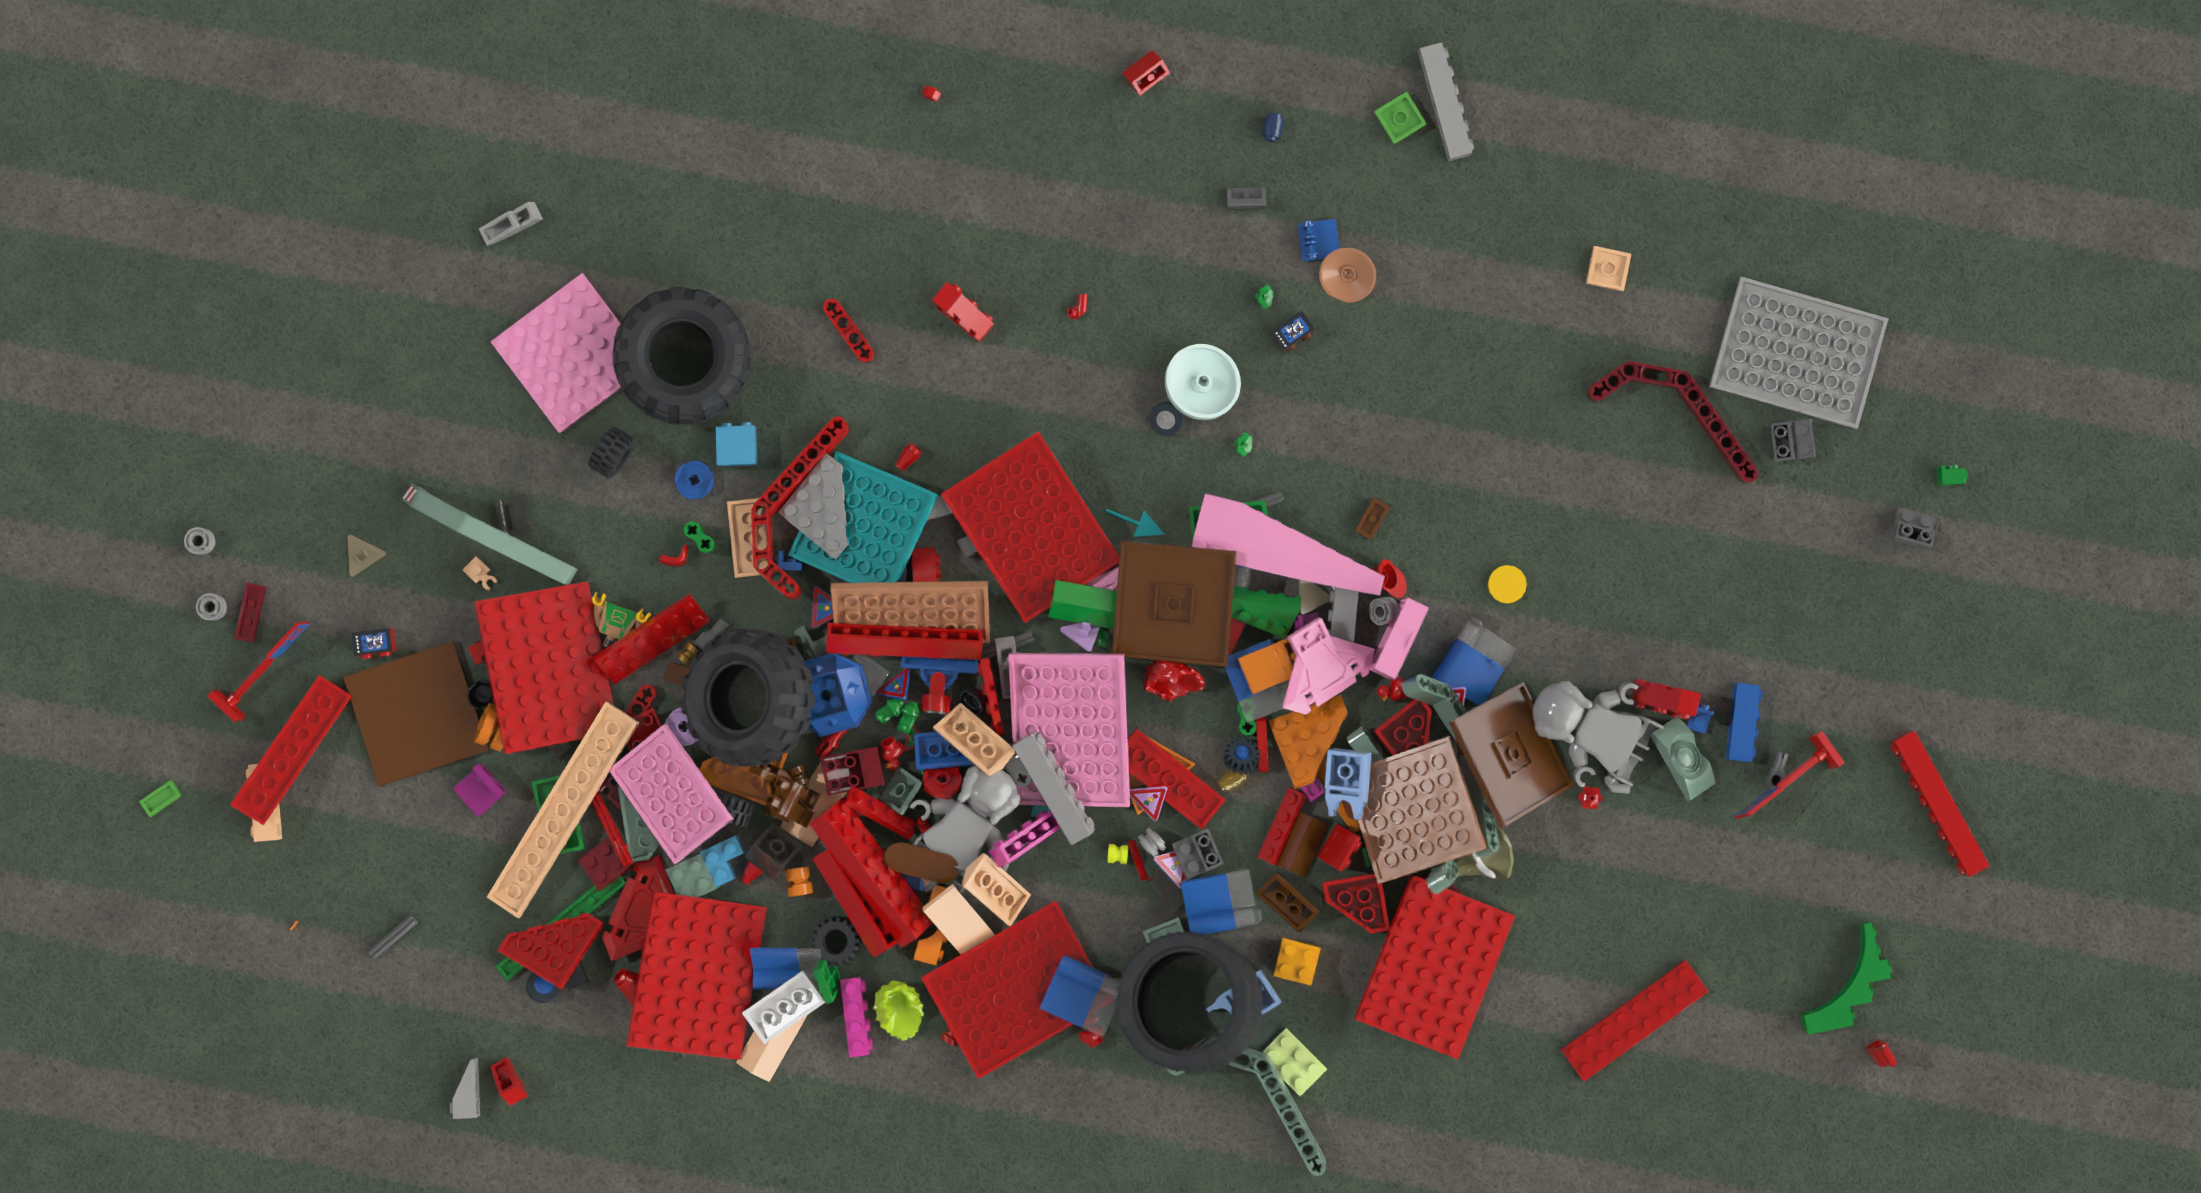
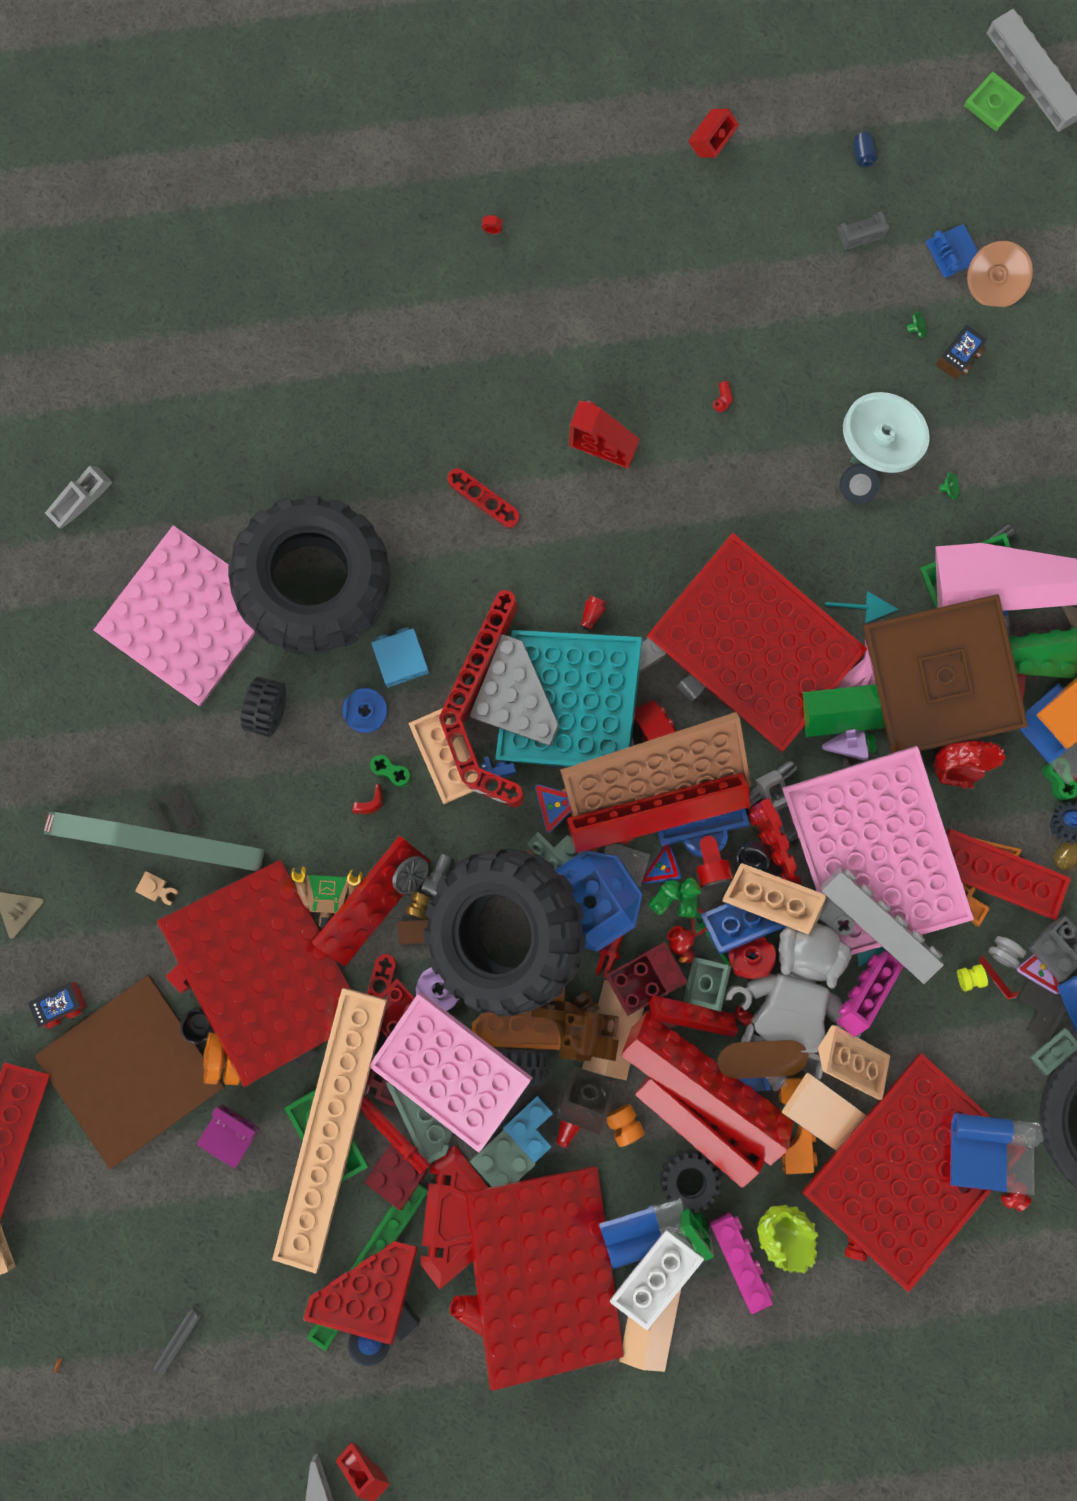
camera: 20 degrees left, 5 degrees down
(689, 628) = (410, 875): none -> dark grey wheel
(1149, 799) = (990, 904): piece -> none

